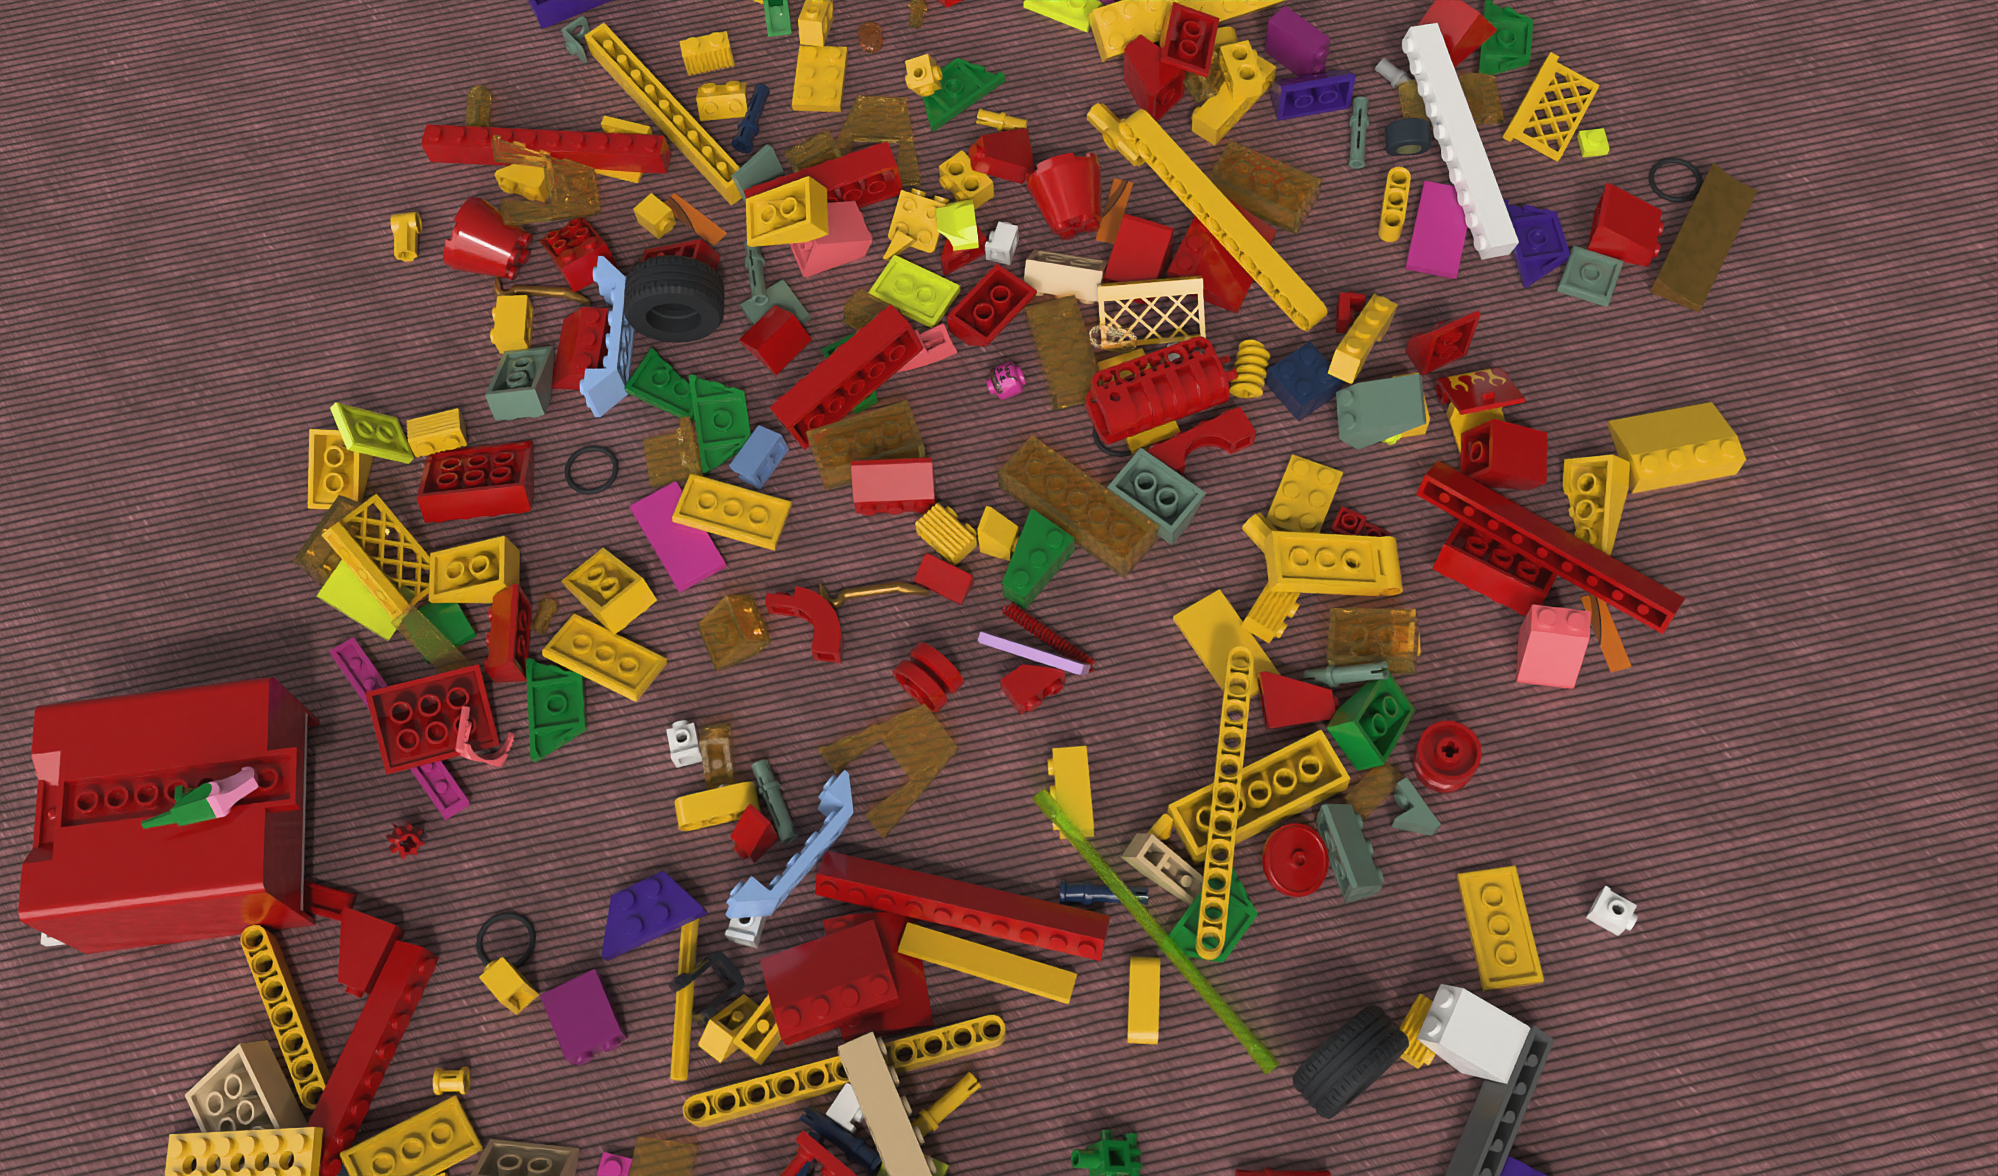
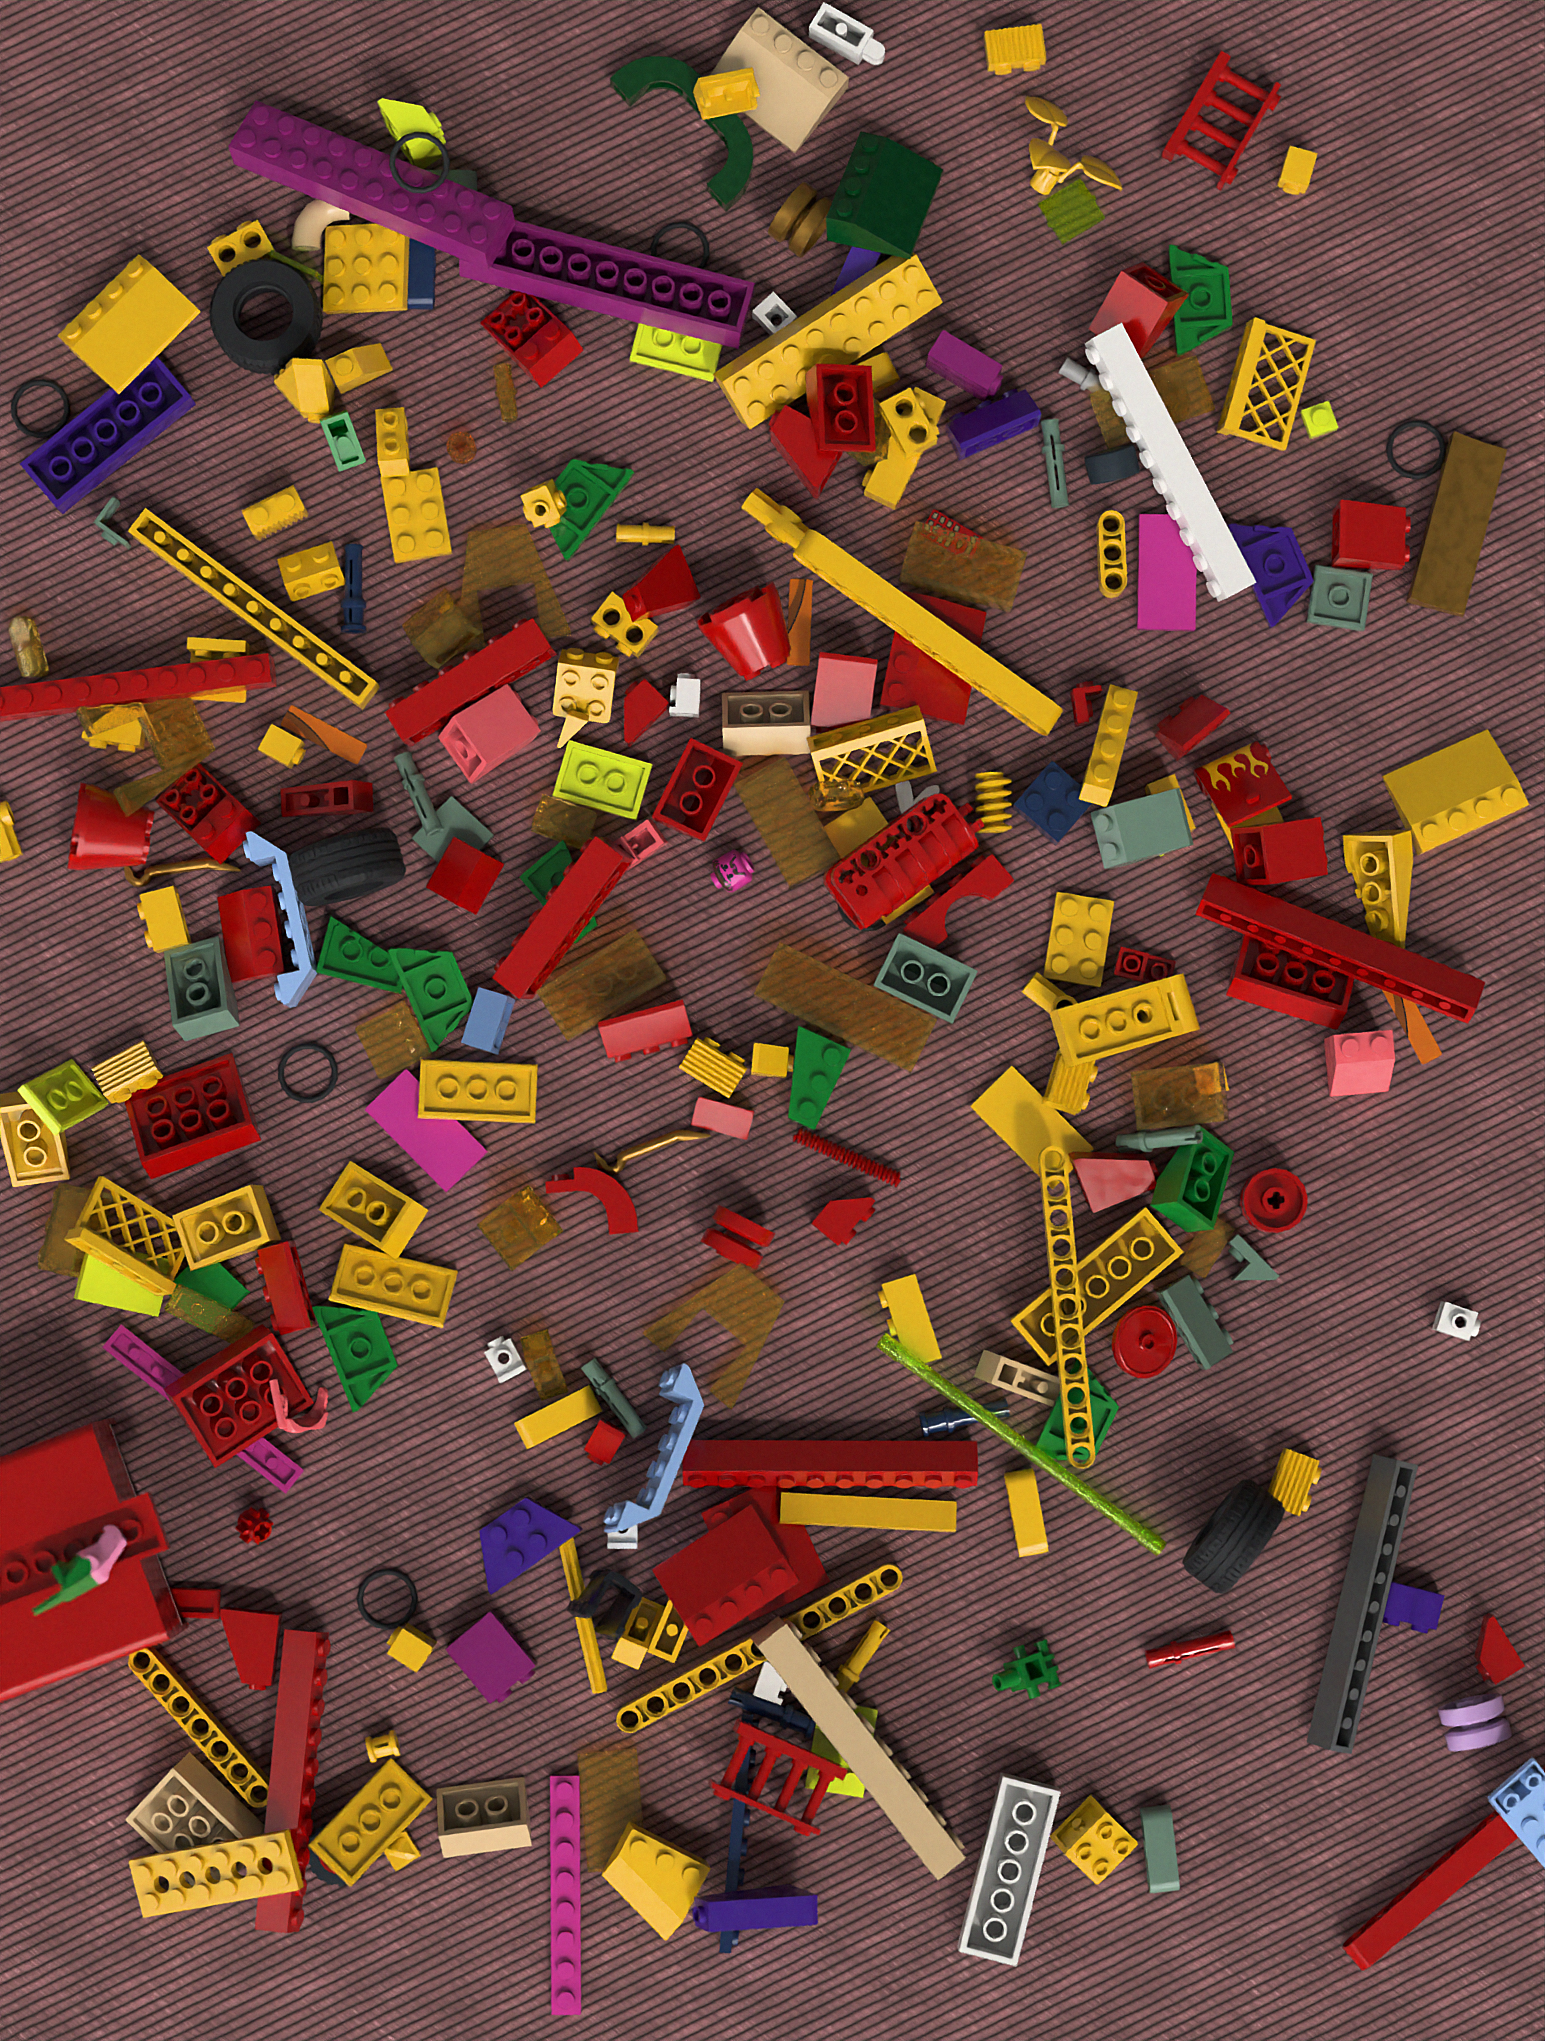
camera: 20 degrees left, 20 degrees up
(544, 615) = (313, 1253): clear yellow pin -> none
(758, 170) = (392, 677): sand green tile -> none
(788, 214) = (445, 740): yellow slope -> none
(958, 224) = (634, 695): neon yellow slope -> none
(1034, 653) = (837, 1183): lavender tile -> none
(1162, 827) = (1007, 1341): yellow tile -> none
(1473, 1034) = (1342, 1480): white slope -> none
(1499, 928) = (1351, 1359): yellow tile -> none

